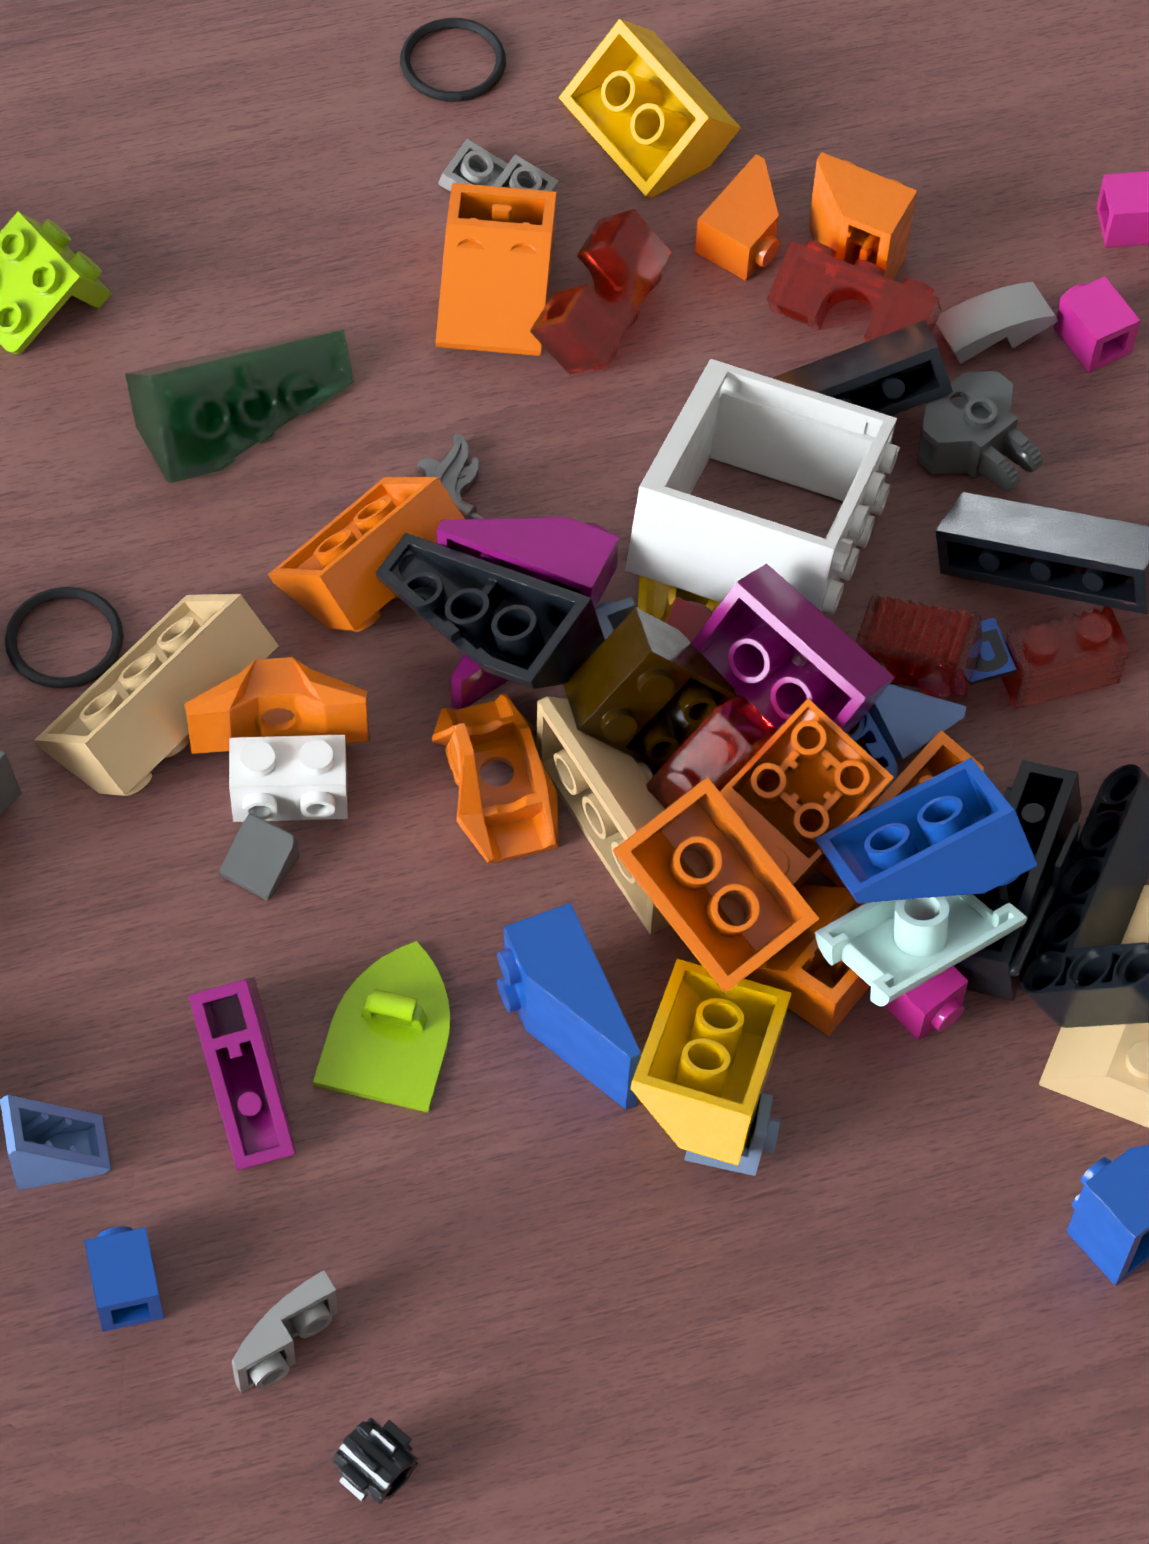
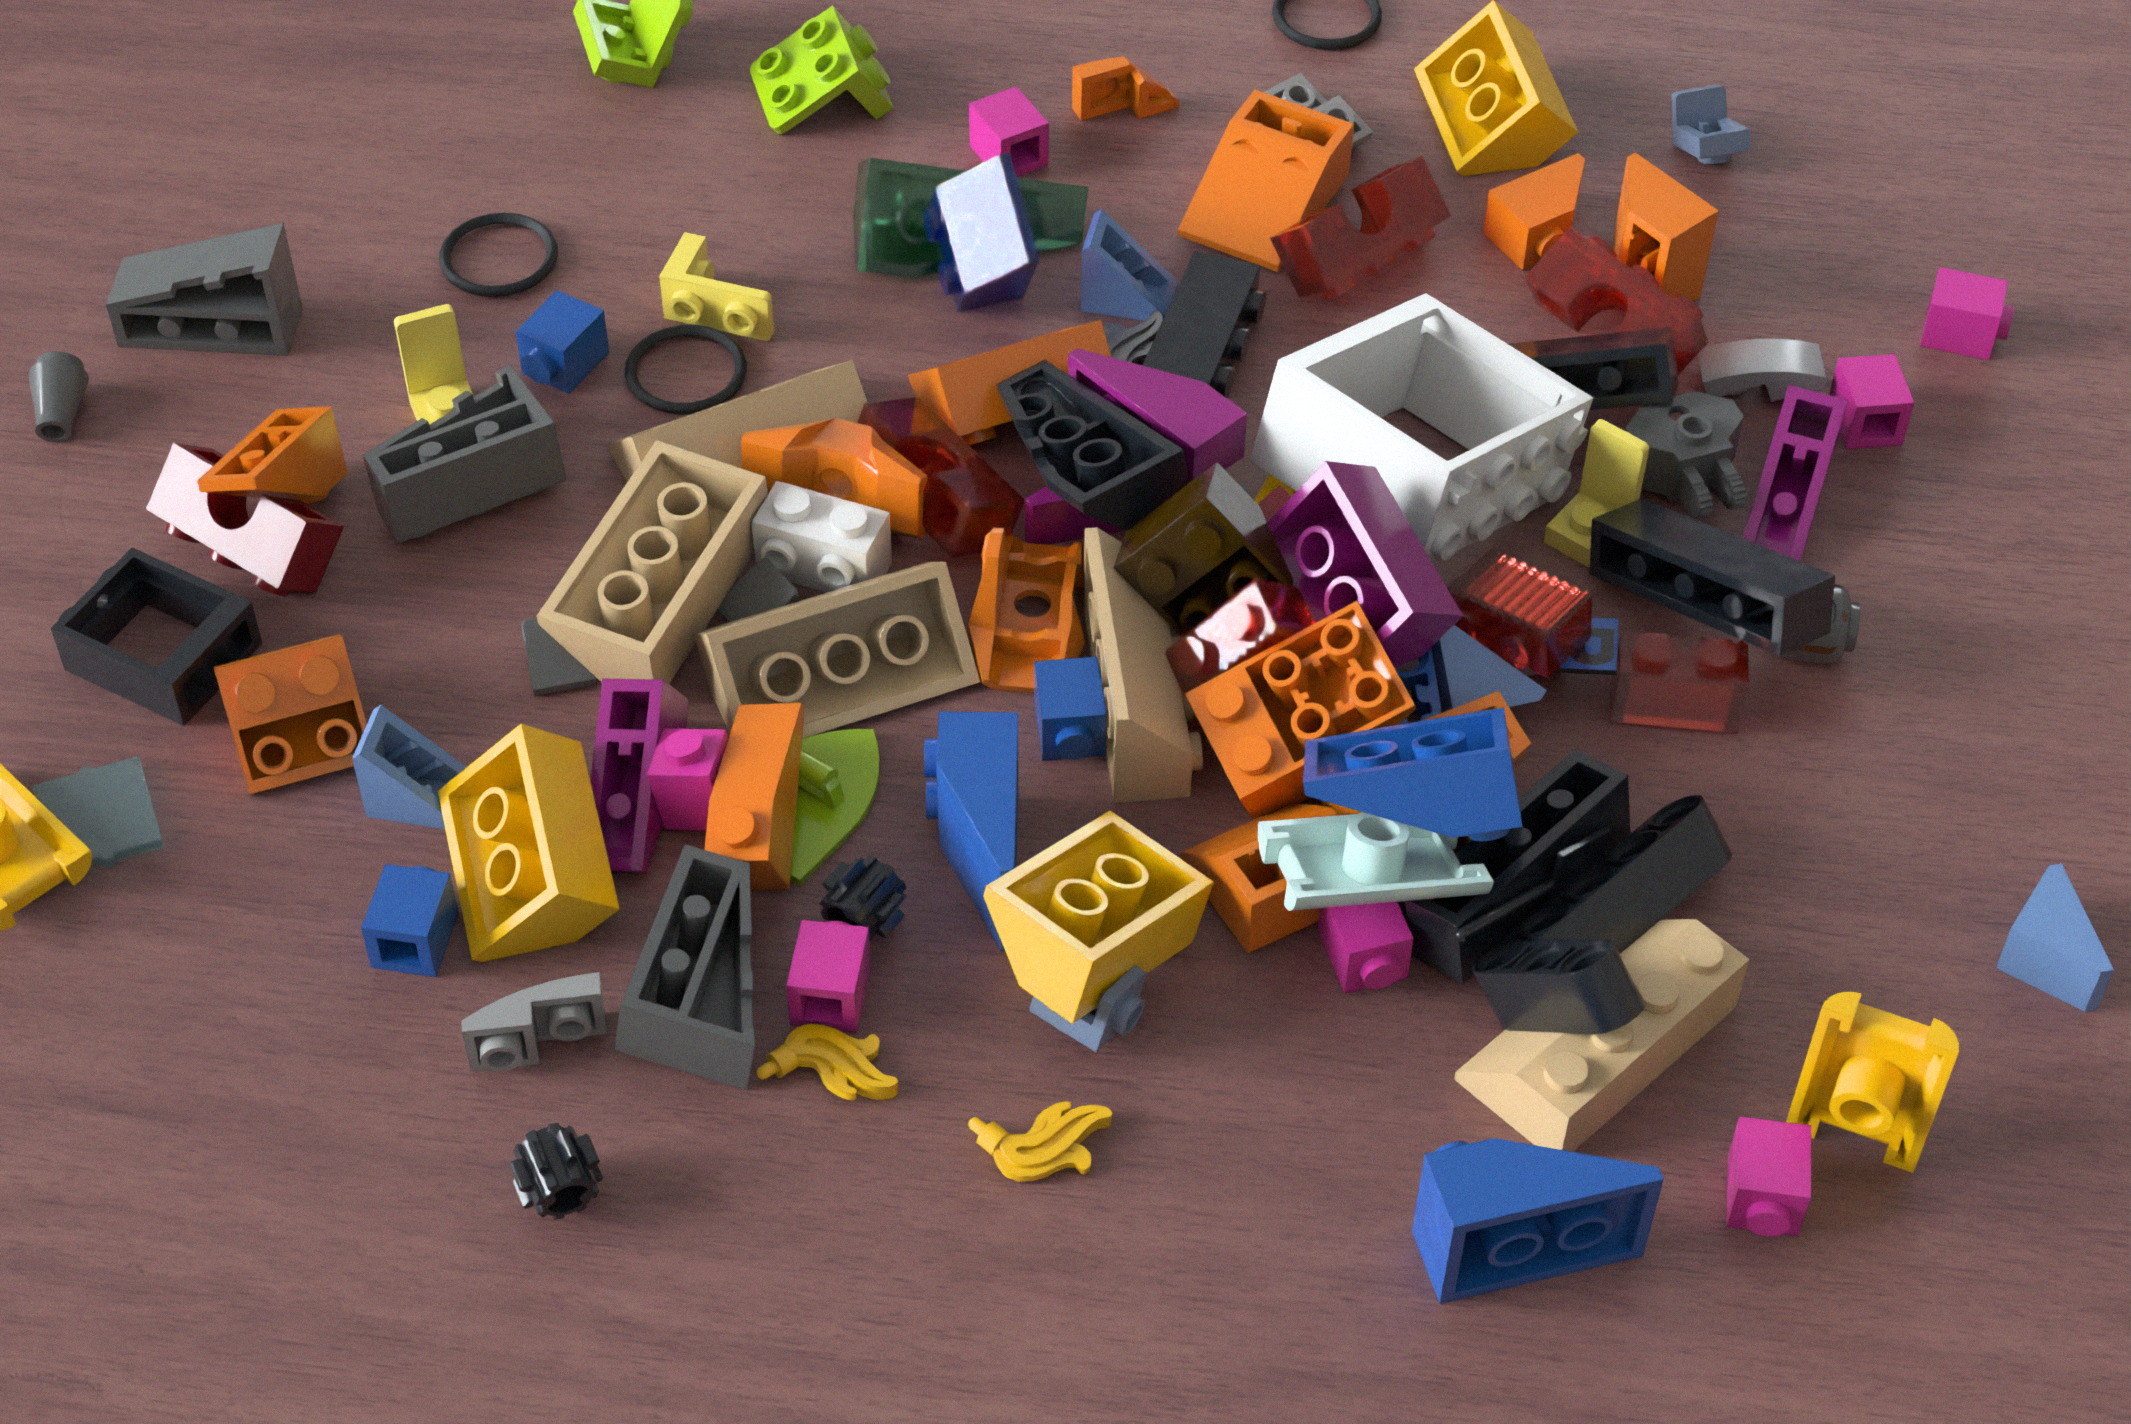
camera: 25 degrees right, 10 degrees down
(47, 566) = (697, 299): none -> light yellow bracket
(108, 971) = (550, 664): none -> dark grey slope
(164, 860) = (656, 565): none -> tan slope
(190, 1173) = (527, 846): none -> yellow slope
(237, 291) = (1009, 125): none -> dark pink brick
(284, 418) = (982, 235): none -> clear blue slope
(302, 1053) = (685, 774): none -> dark pink brick
(307, 205) = (1115, 85): none -> orange slope
(356, 885) = (844, 650): none -> tan slope
(366, 1047) = (758, 791): none -> orange slope
(400, 1239) = (695, 976): none -> dark grey wedge
(402, 691) = (961, 487): none -> clear red arch
(414, 410) = (1121, 275): none -> medium blue slope
(500, 1112) = (864, 896): none -> black gear
(506, 1191) = (829, 975): none -> dark pink brick
(514, 444) = (1209, 321): none -> black brick
(545, 1262) = (837, 1059): none -> yellow piece
(580, 864) = (1070, 708): none -> blue brick
(715, 885) = (1172, 743): orange slope -> none
(752, 1272) = (1048, 1145): none -> yellow piece
(841, 85) = (1703, 125): none -> sand blue bracket
(924, 499) = (1609, 480): none -> light yellow bracket
(1068, 424) = (1795, 471): none -> magenta slope

